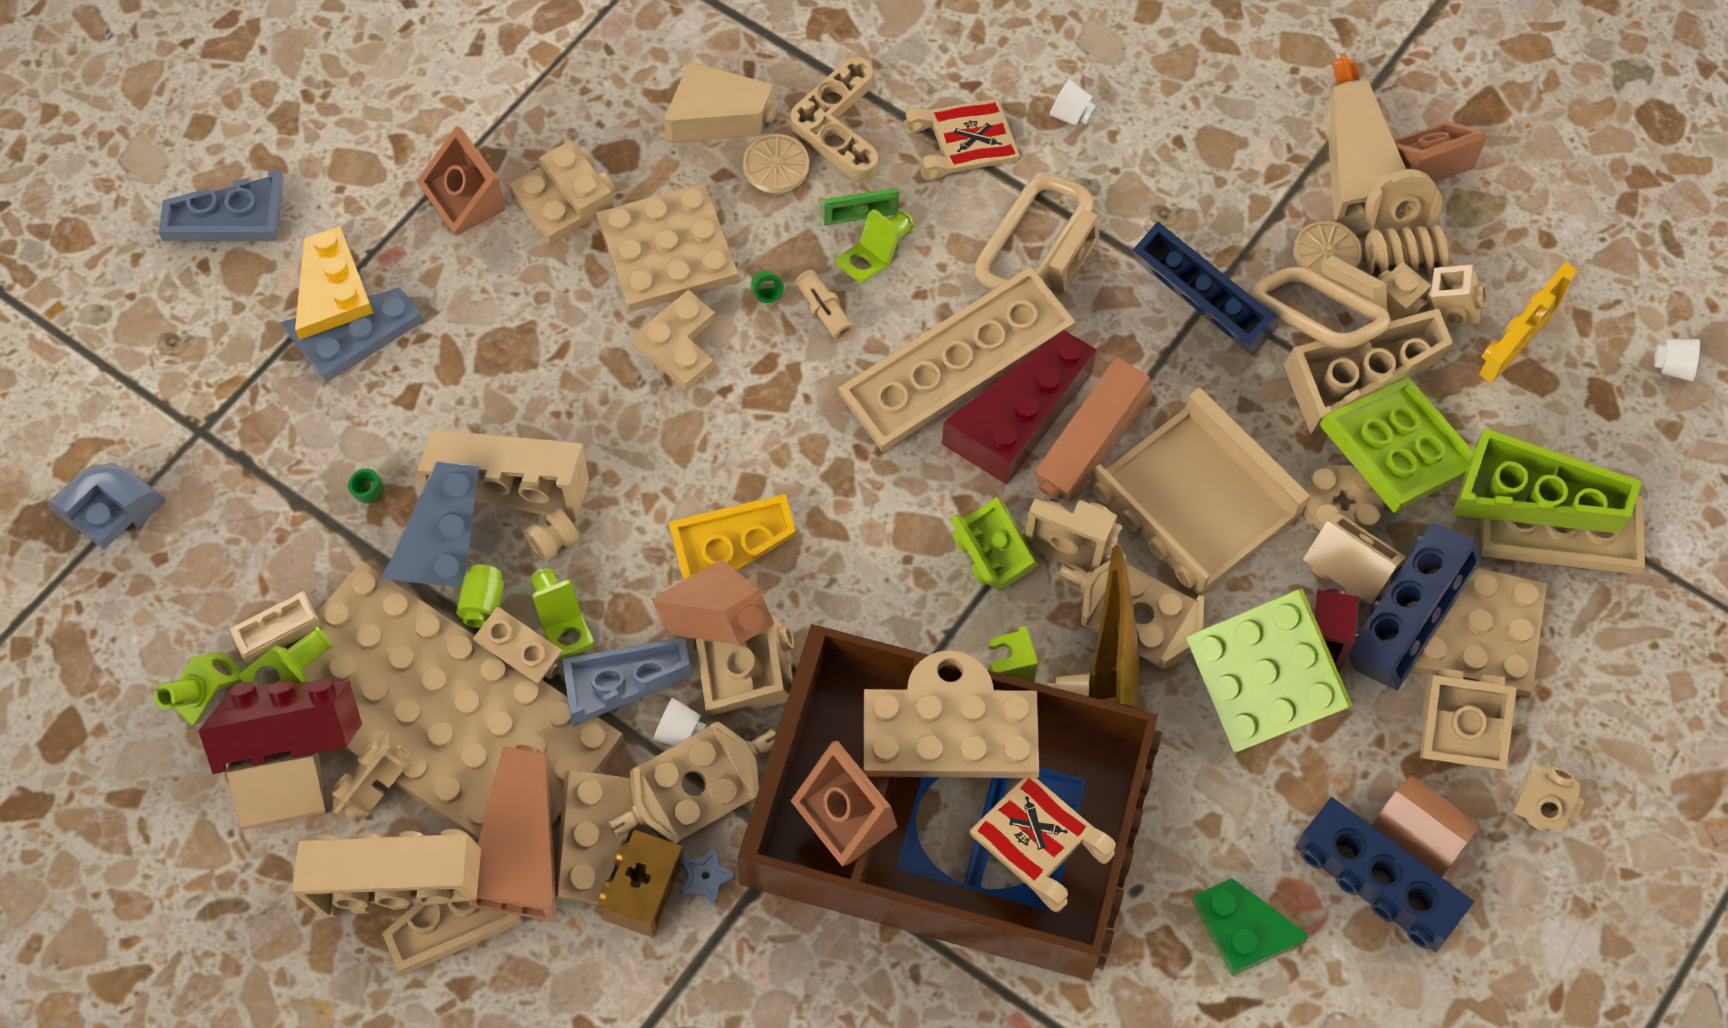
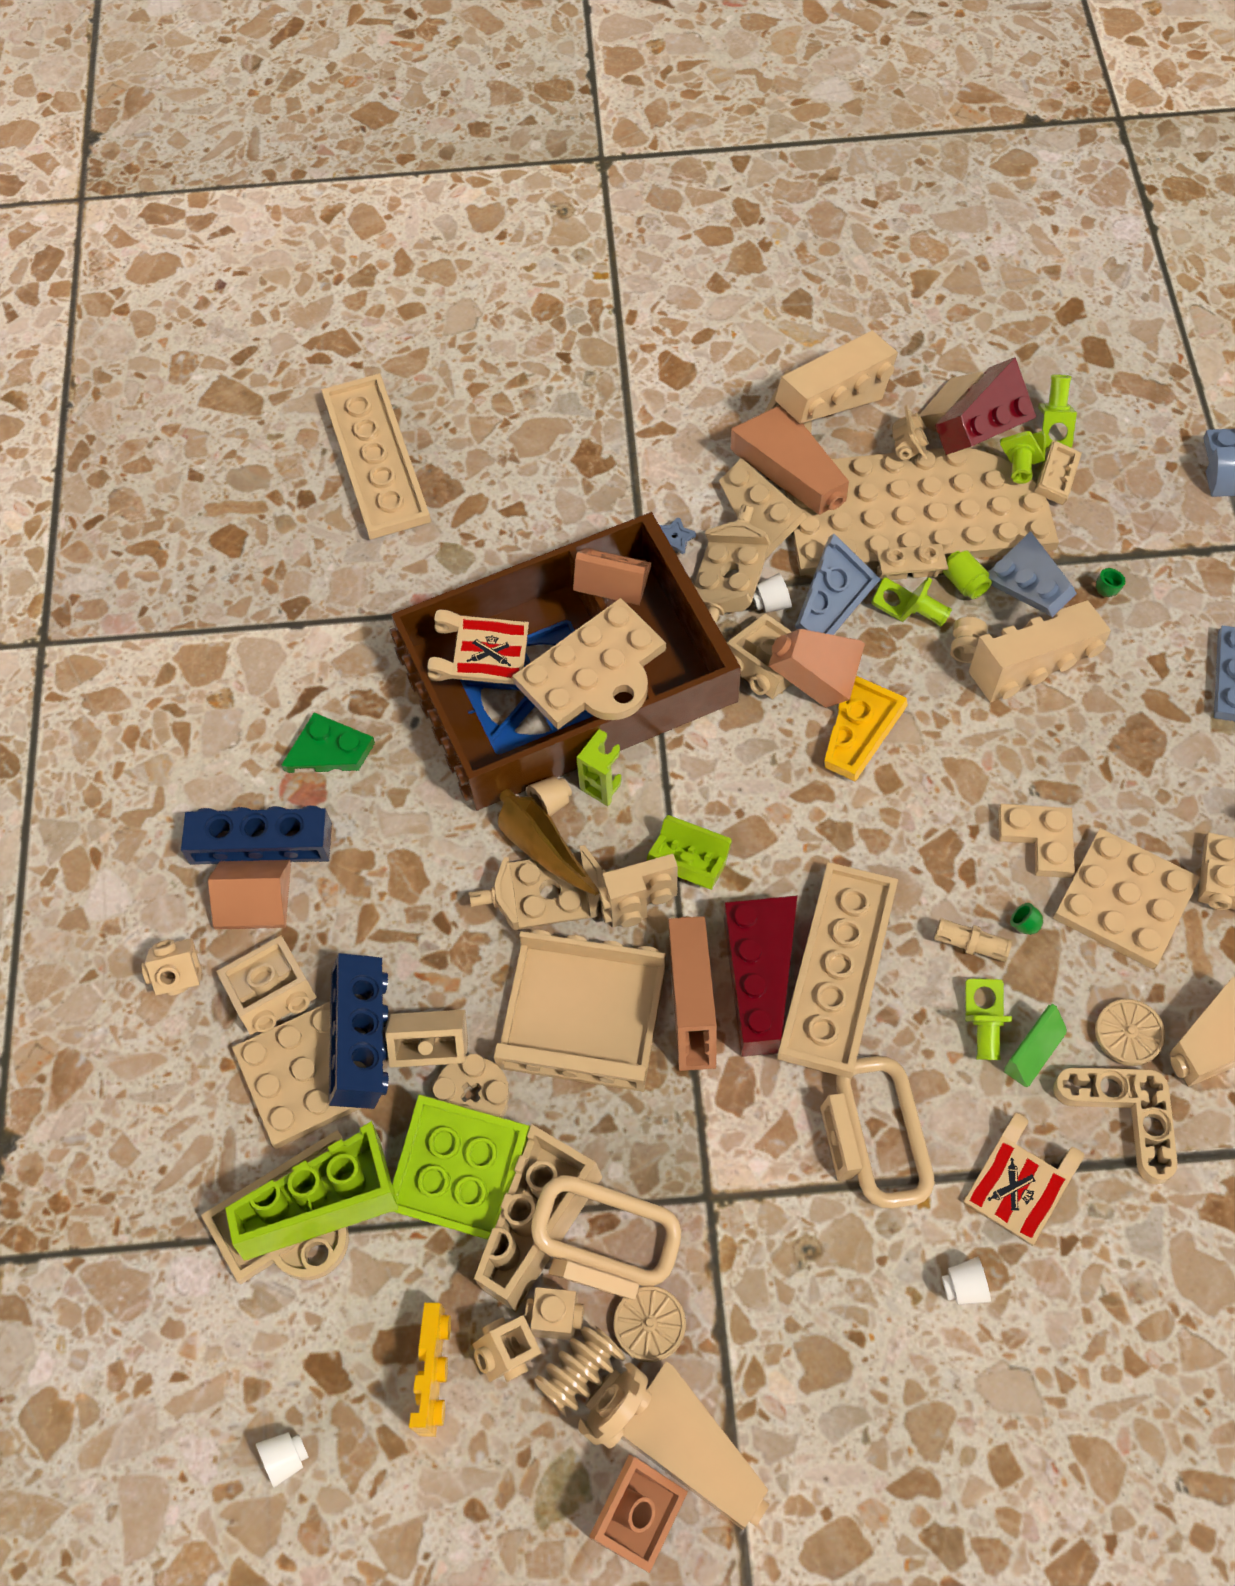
camera: 145 degrees right, 0 degrees up
(642, 906) = (703, 500): pearl gold brick -> none
(1205, 288) = (712, 1179): dark blue brick -> none
(1268, 671) = (423, 888): lime plate -> none
(1337, 622) = (405, 959): dark red brick -> none
(1345, 69) = (777, 1538): orange plate -> none

